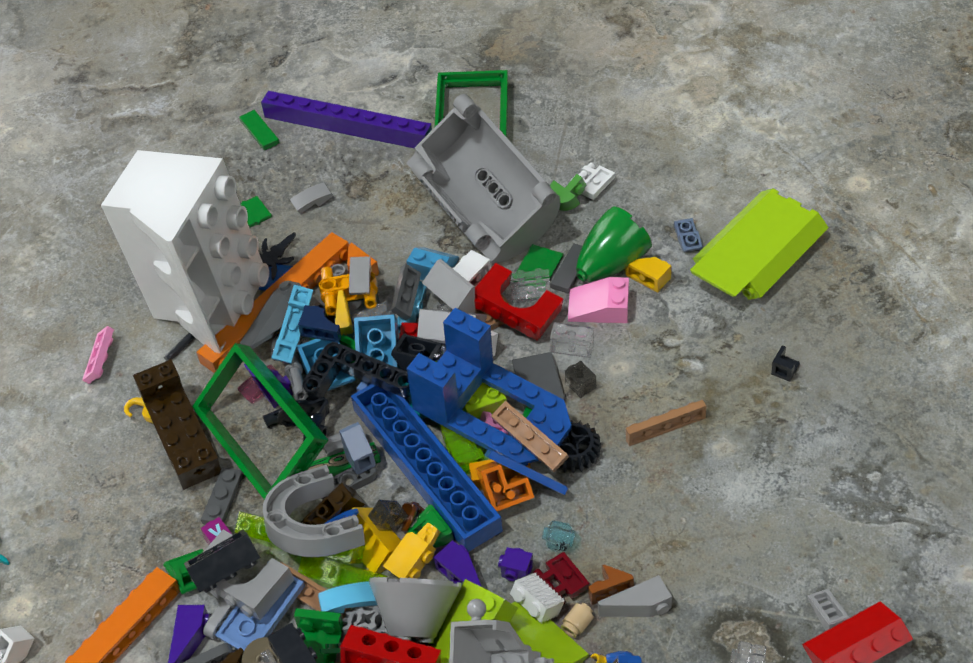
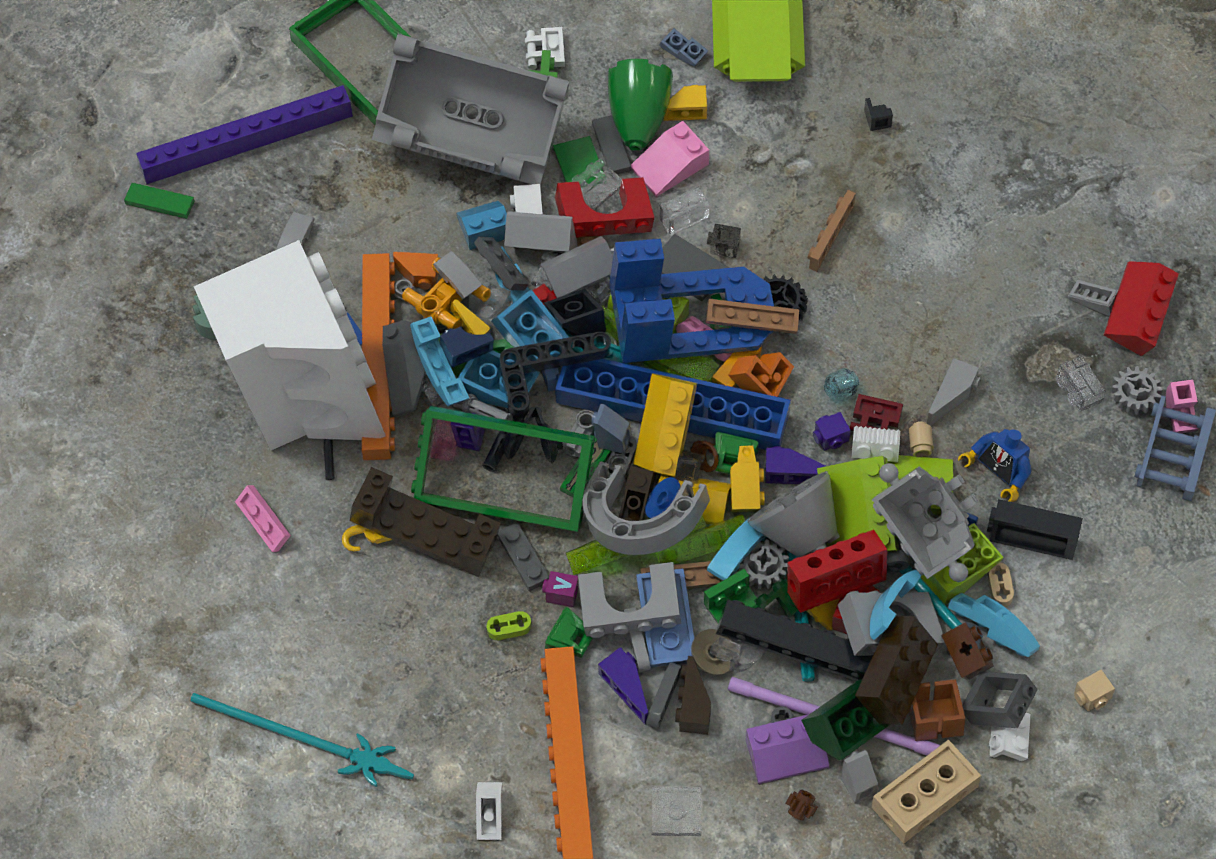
camera: 45 degrees left, 10 degrees up
(164, 532) = (508, 625): none -> lime beam
(222, 561) = (613, 596): black slope -> none
(398, 470) = (664, 424): none -> yellow slope
(526, 471) = (772, 348): blue tile -> none
(613, 583) = (919, 390): dark orange slope -> none

